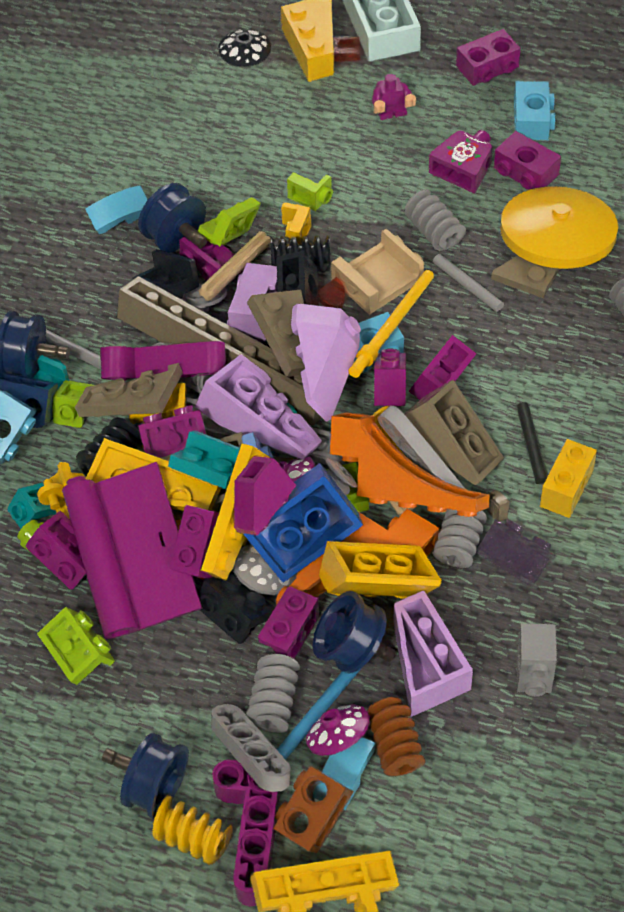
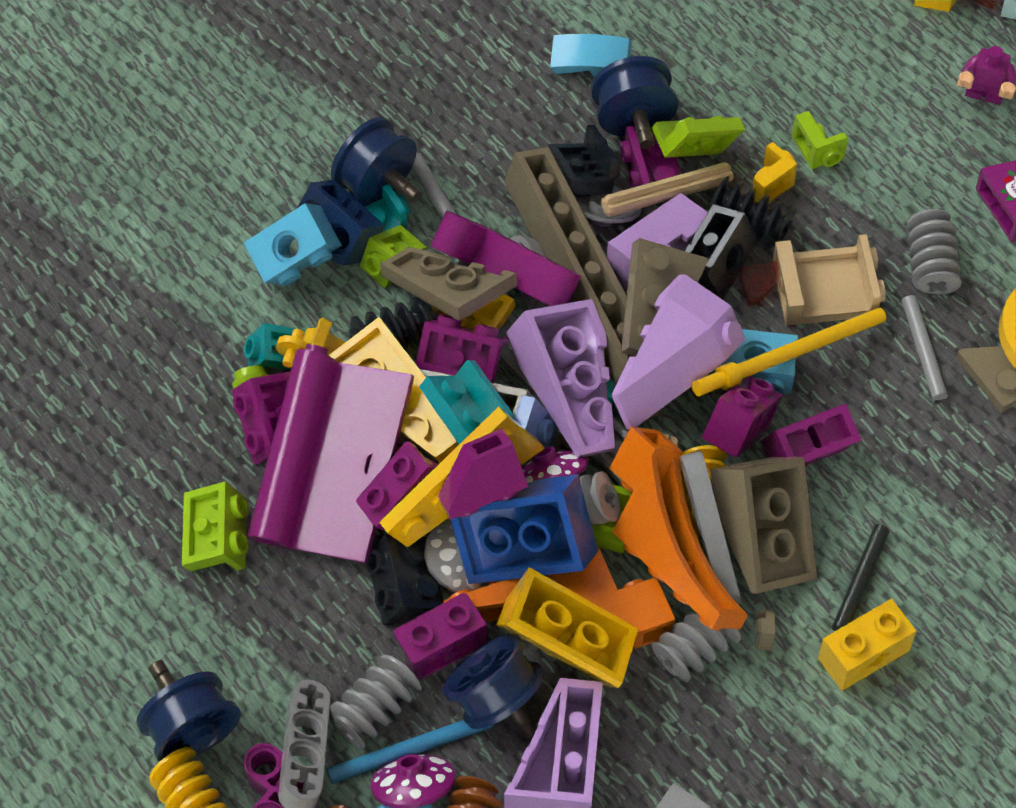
camera: 30 degrees right, 5 degrees up
(515, 552) = (749, 694): clear purple bracket -> none

